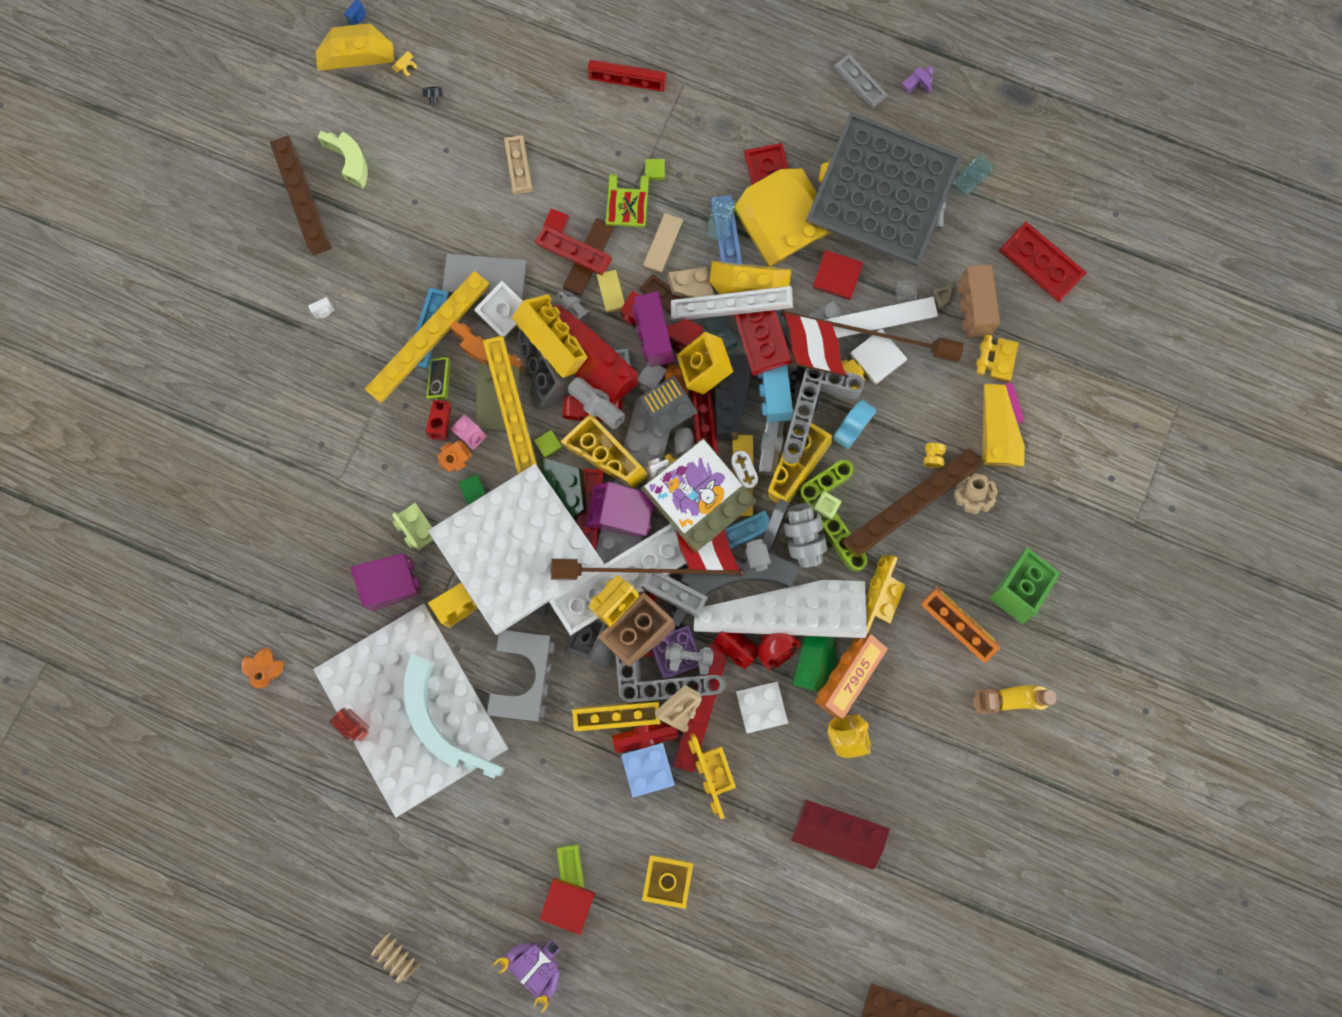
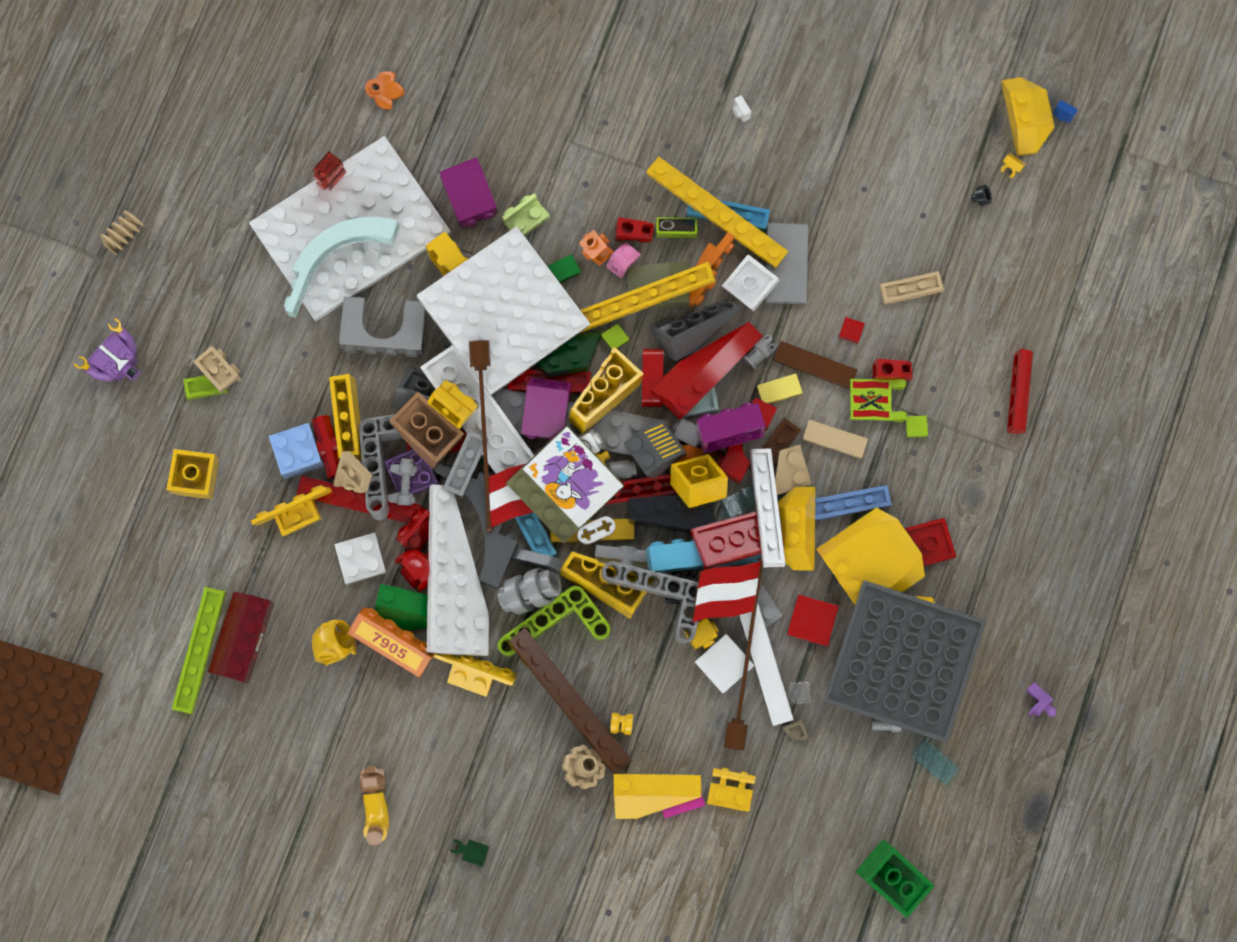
camera: 85 degrees right, 0 degrees up
(300, 195) = (859, 77): reddish brown brick -> none
(355, 166) = (902, 126): yellowish green arch -> none
(549, 334) = (722, 328): yellow wedge -> none
(555, 853) = (216, 369): none -> tan bracket
(567, 906) = (170, 384): red tile -> none
(573, 250) = (817, 347): red plate -> none
(596, 402) = (653, 377): light grey piece -> none
(599, 187) = (891, 369): none -> red leg
(720, 219) = (862, 493): clear light blue slope -> none
(758, 555) = (505, 543): light grey brick -> none
(827, 505) = (560, 612): yellowish green tile -> none
(851, 879) = (198, 650): none -> lime tile
(854, 424) = (650, 640): medium azure animal -> none
(860, 81) = (1036, 639): light grey tile -> none
(960, 624) = (446, 750): orange brick -> none
(978, 301) = (788, 764): medium nougat brick -> none
(1025, 586) = (490, 818): bright green slope -> none
(1042, 261) = (842, 838): red tile -> none
(1056, 603) = (473, 852): none -> dark green plate
(1079, 217) = (895, 878): none -> green slope

